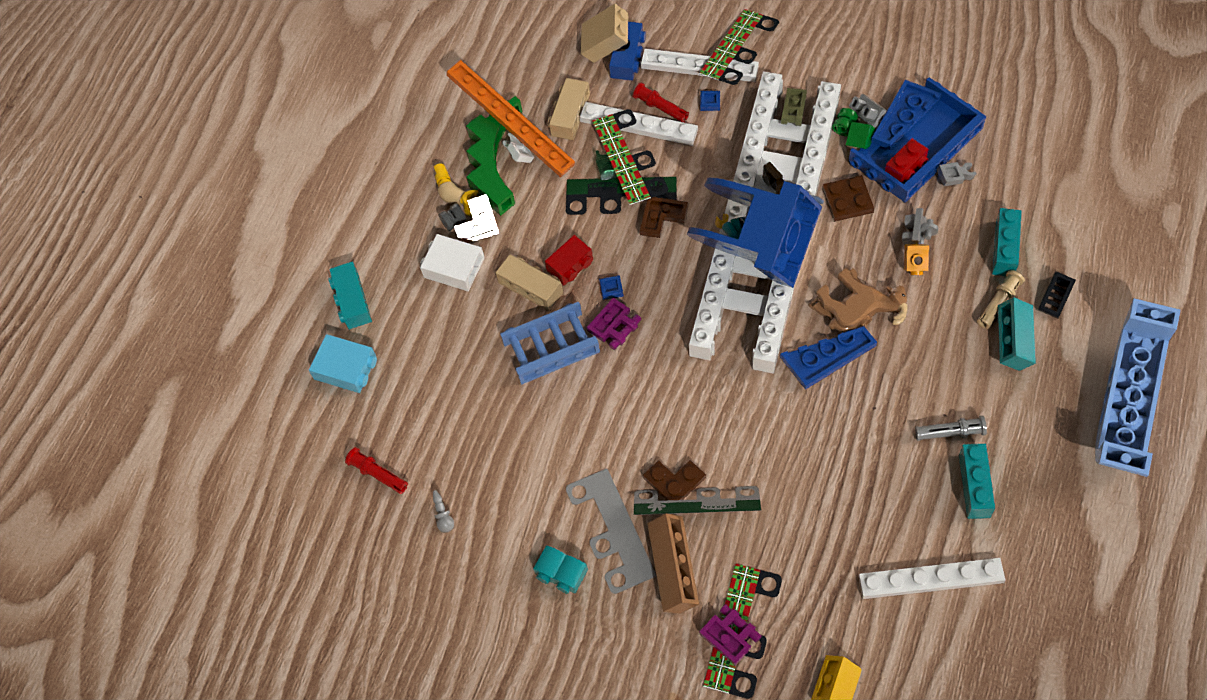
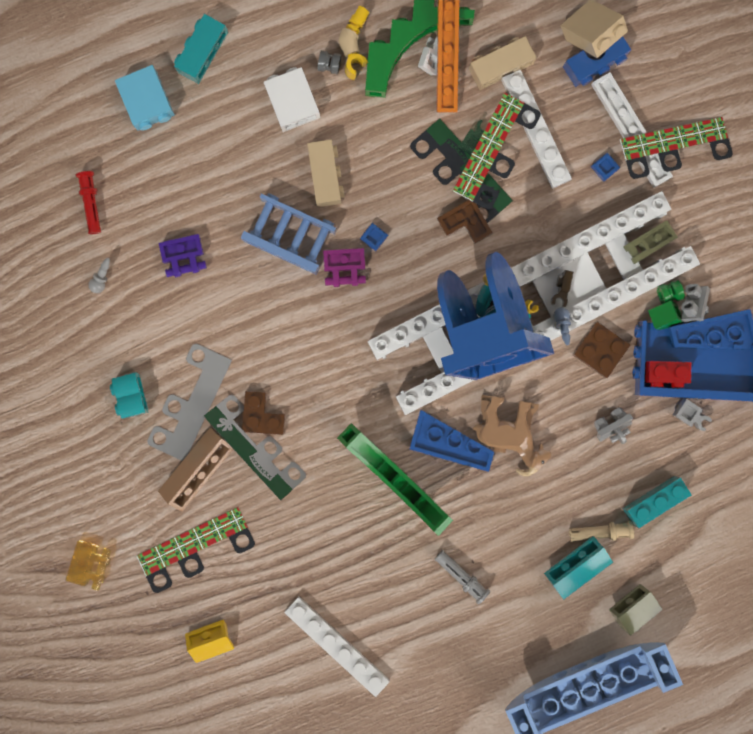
camera: 45 degrees right, 25 degrees up
(481, 225) = (340, 91): plate -> none
(483, 430) = (182, 249): none -> dark purple plate
(569, 260) = (366, 188): red brick -> none
(653, 98) = (567, 122): red pin -> none
(725, 639) = (176, 547): magenta plate -> none
(820, 412) = (395, 478): none -> green arch
(913, 251) = (585, 445): light orange brick -> none
(976, 481) = (433, 625): teal brick -> none
(1060, 279) = (639, 562): black slope -> none
(1088, 318) = (635, 609): none -> olive brick

